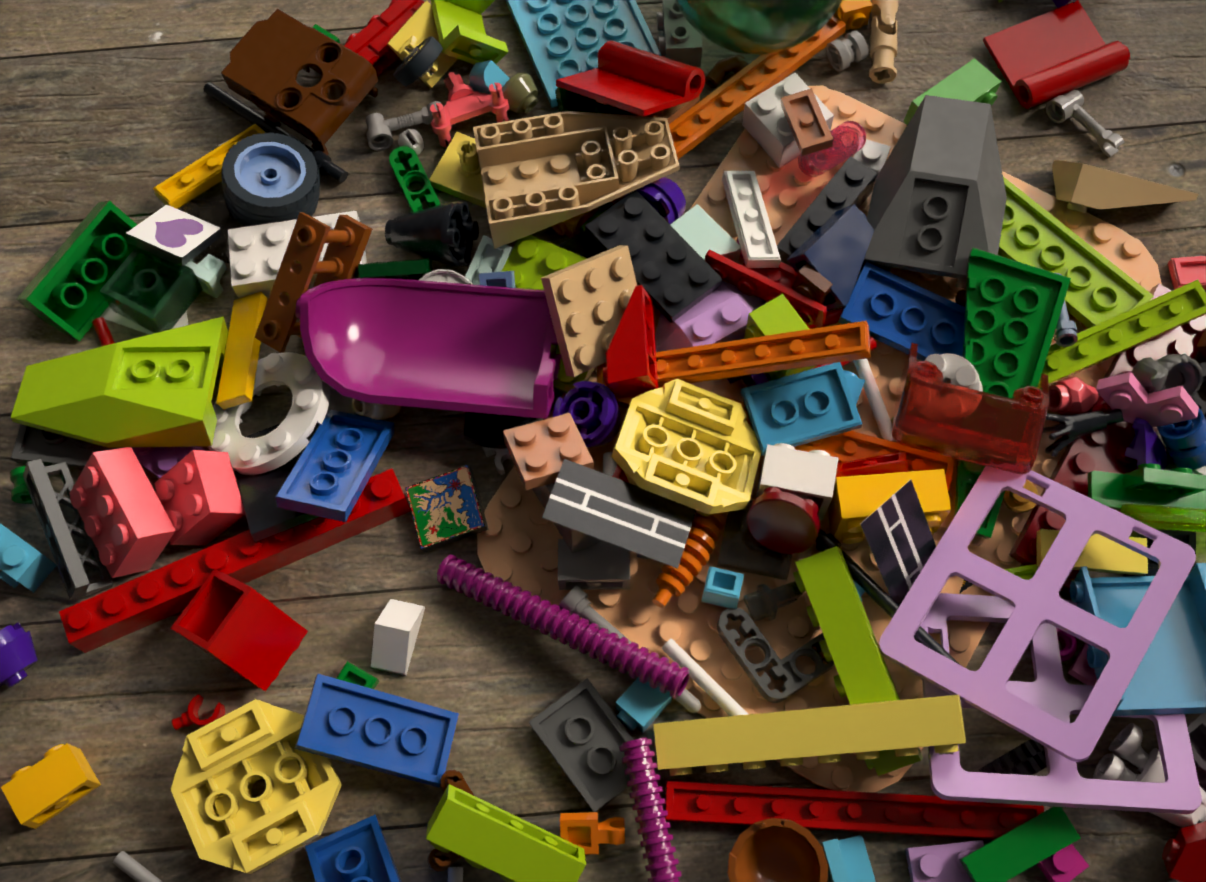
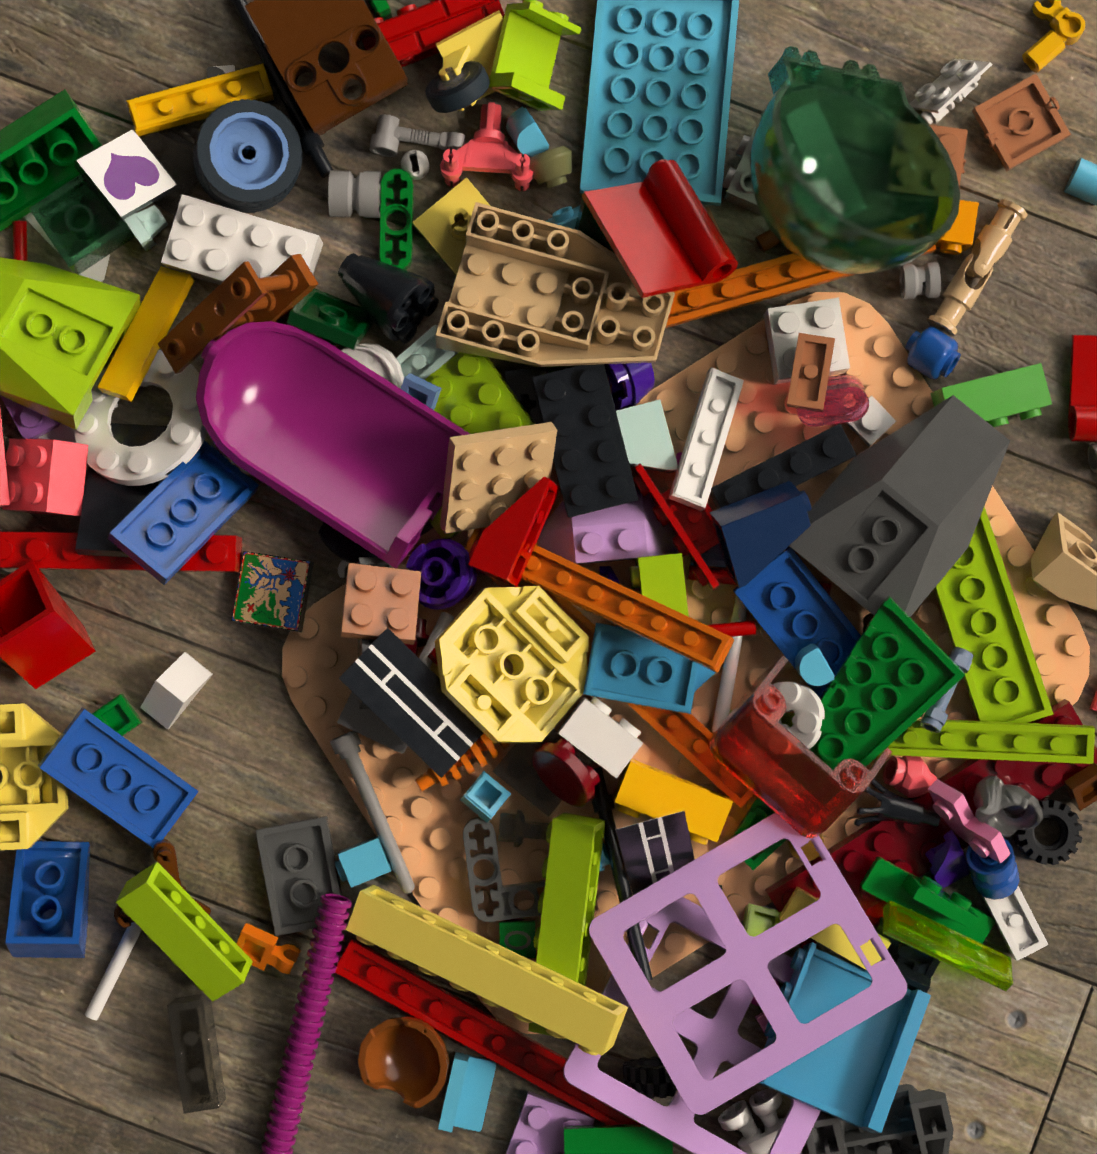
camera: 25 degrees right, 20 degrees up
(372, 176) = (352, 194): none -> light grey wheel
(562, 625) = (322, 761): magenta piece -> none
(710, 686) = (427, 868): white piece -> none
(812, 284) = (716, 553): reddish brown plate -> none
(817, 696) = (518, 937): none -> green tile
(874, 465) = (676, 758): red plate -> none
(887, 92) = (932, 353): none -> blue head
(941, 339) = (812, 666): none -> medium azure brick

